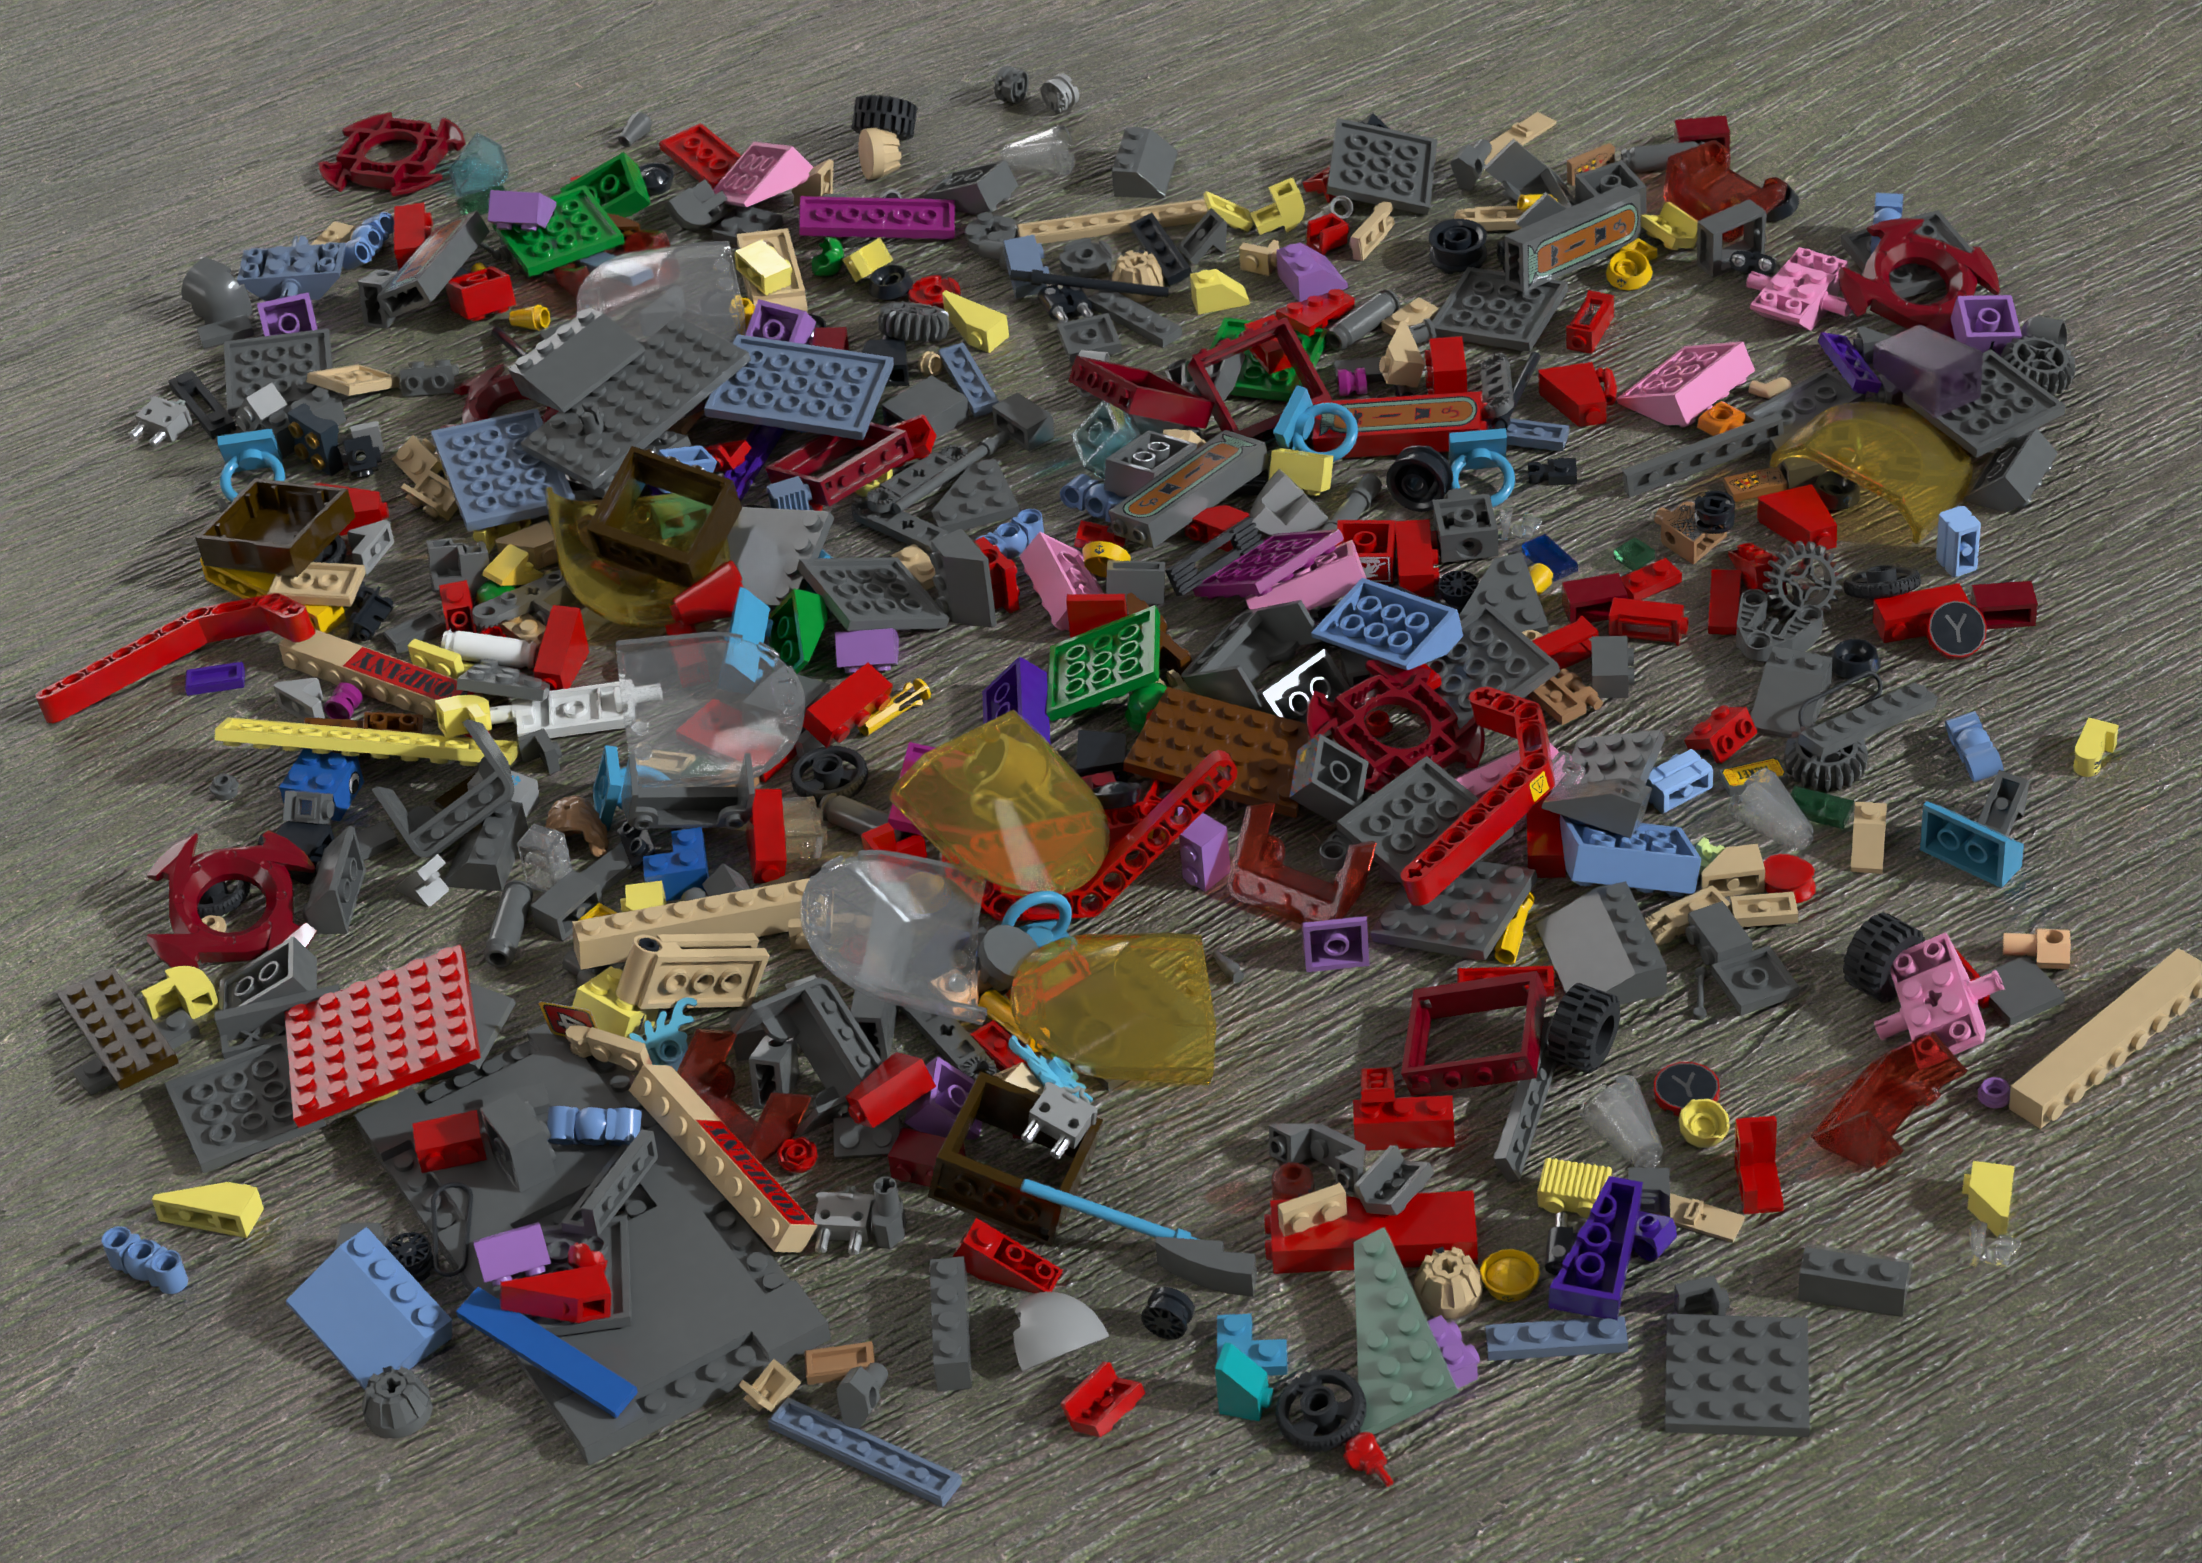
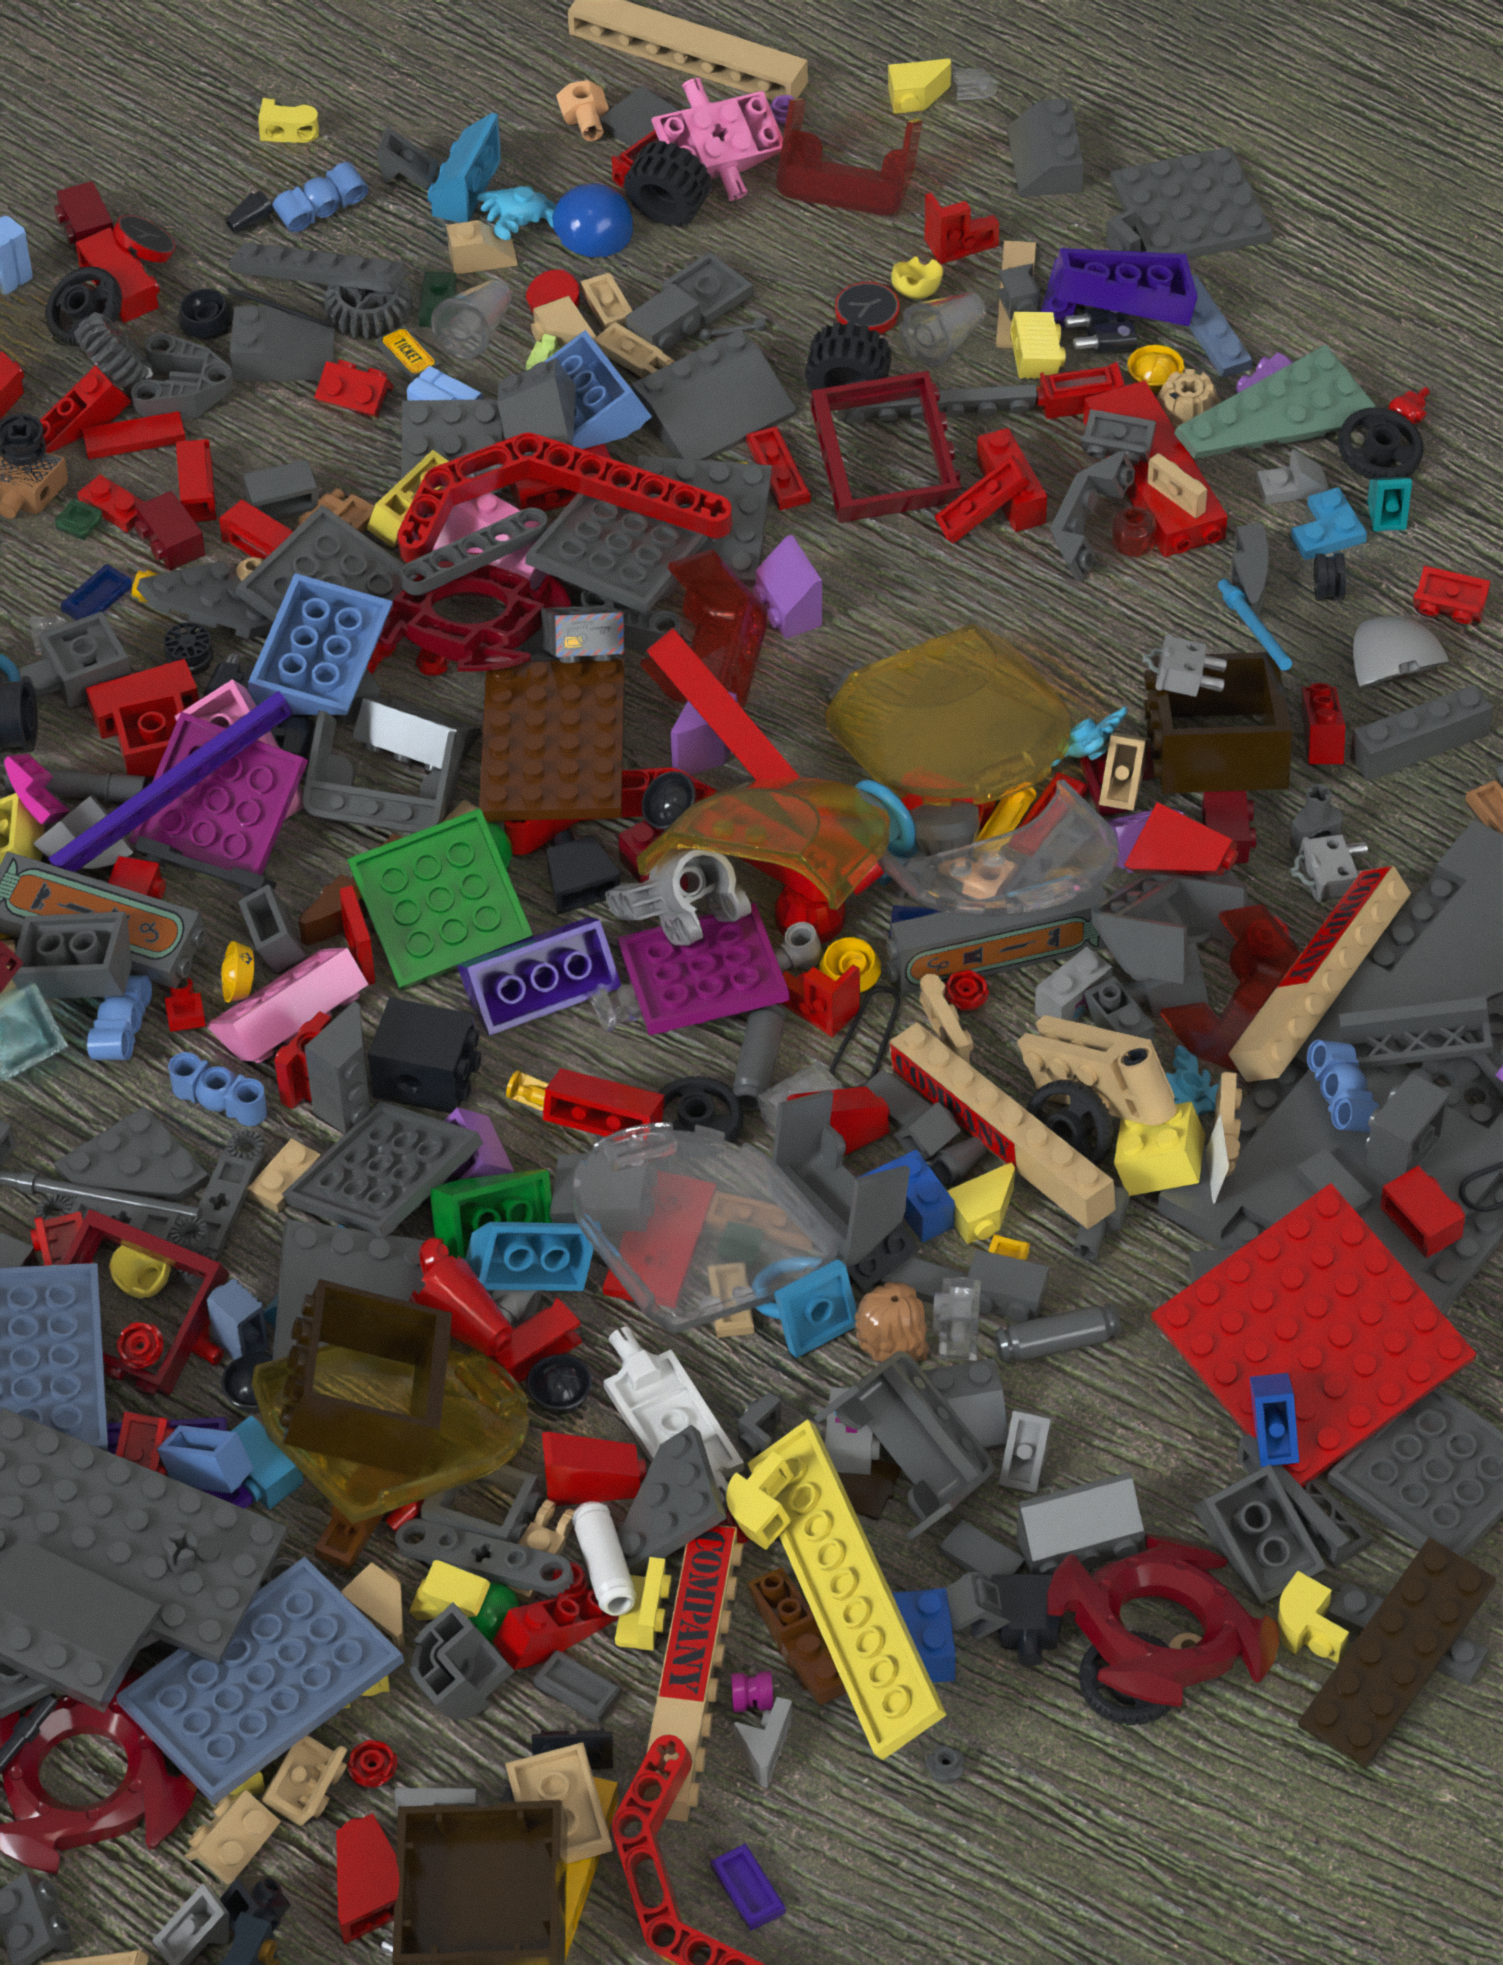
camera: 115 degrees left, 10 degrees up
(327, 984) = (1274, 1419): none -> blue slope
(425, 527) = (372, 1753): none -> red plate
(767, 591) = (431, 1253): none -> red plate
(792, 454) = (128, 1344): none -> red plate
(963, 633) = (424, 1056): none -> black brick
(1271, 519) = (172, 784): none -> dark purple tile
(1313, 1338) = (1293, 482): none -> light grey slope
(1329, 472) = (29, 783): none -> dark pink slope
(1450, 721) = (465, 562): none -> dark grey beam
(1500, 1203) = (1065, 392): none -> red window
(1563, 731) = (392, 507): none -> light yellow slope
(1871, 901) = (593, 220): none -> blue cylinder
(1915, 874) = (515, 209): none -> medium azure animal
(1979, 703) = (250, 211): none -> black cone

